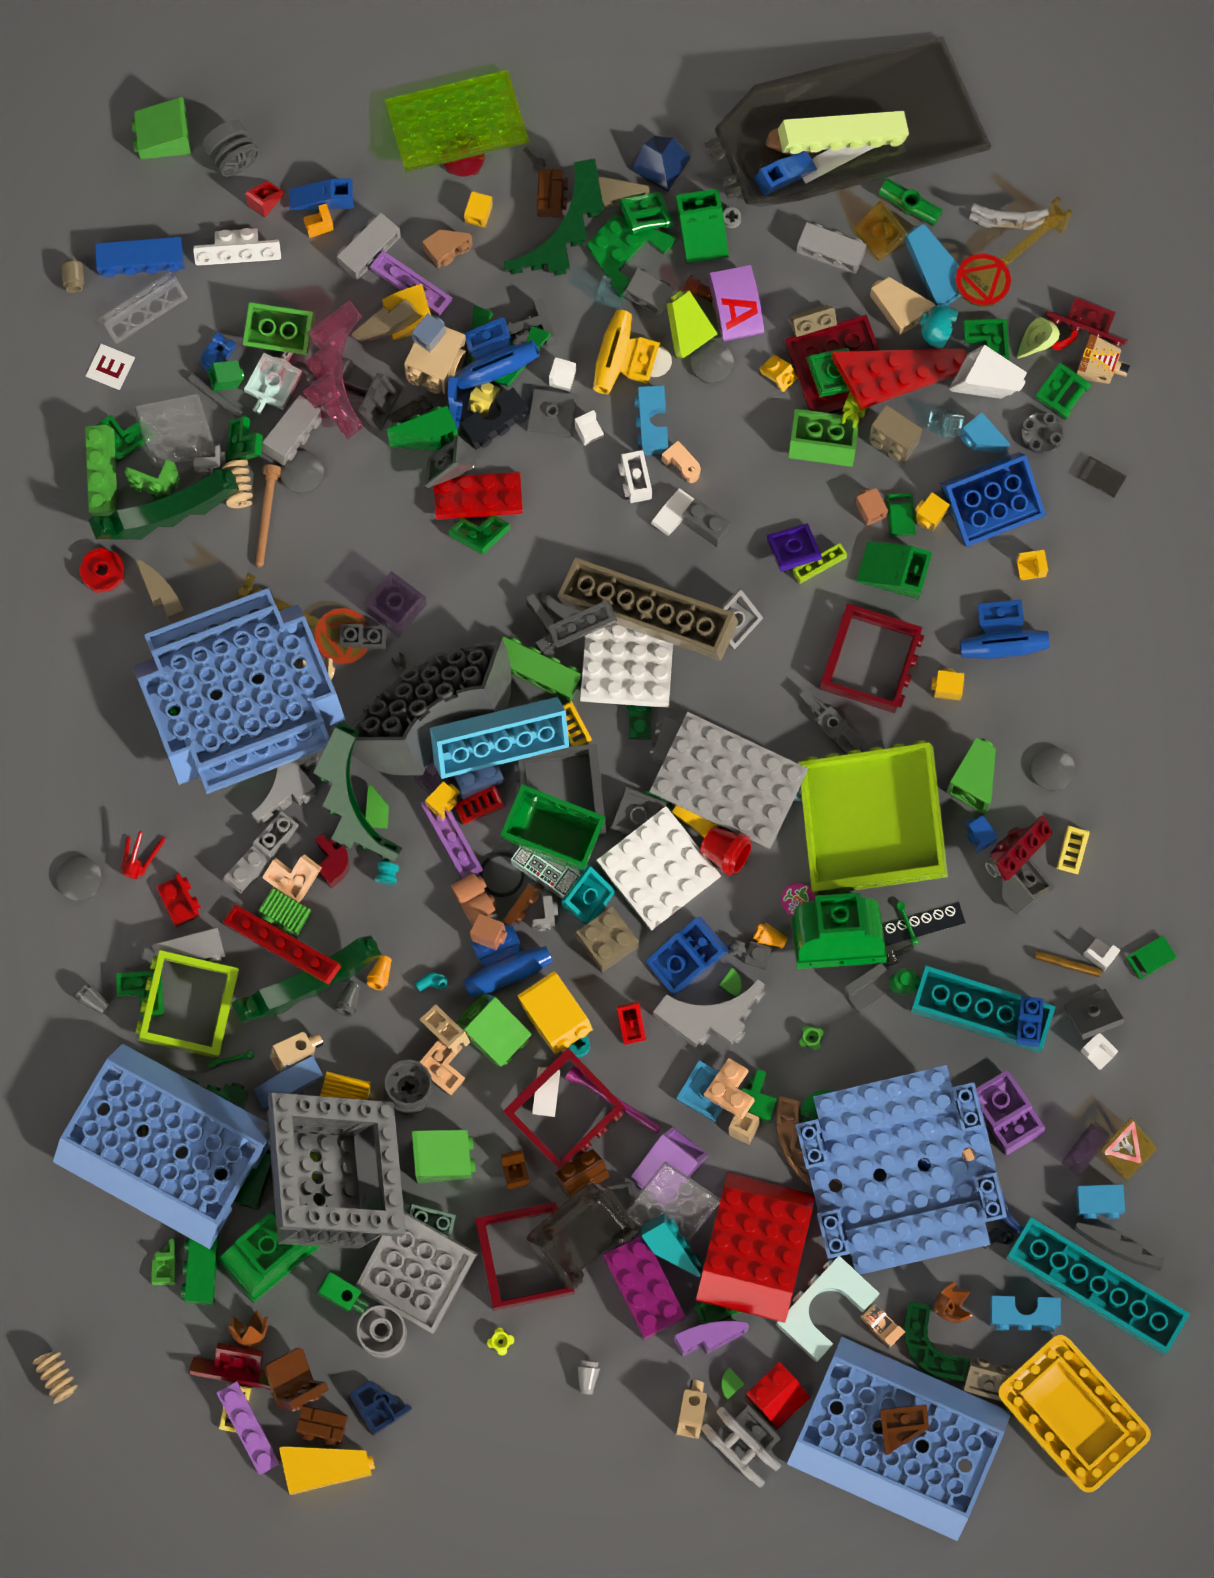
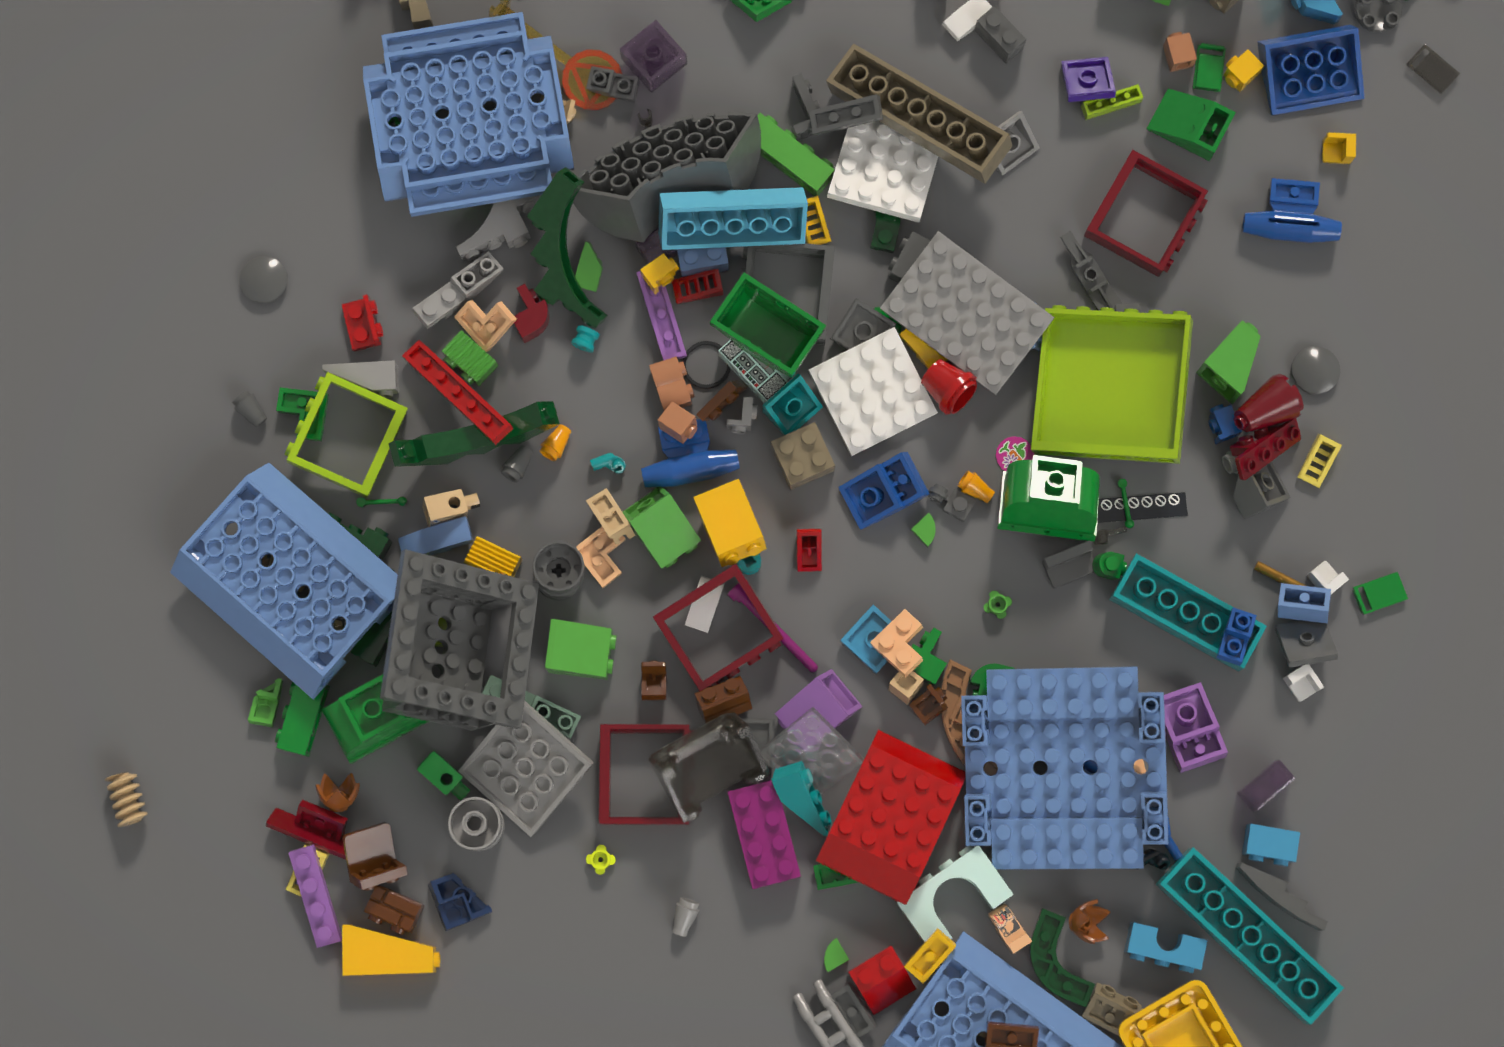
camera: 15 degrees right, 5 degrees up
(131, 867) = (320, 278): red plant -> none
(692, 1416) = (785, 985): tan torso -> none
(709, 1336) = (822, 901): medium lavender slope -> none
(721, 1019) = (907, 566): light grey arch -> none
(769, 1139) = (929, 704): none -> reddish brown bracket
(816, 1362) = (930, 955): none -> yellow plate
(948, 684) = (1222, 257): yellow brick -> none
(1017, 808) = (1270, 405): none -> dark red cone
(1085, 979) = (1304, 603): none -> medium blue brick
(1128, 1149) = (1313, 794): clear yellow piece -> none

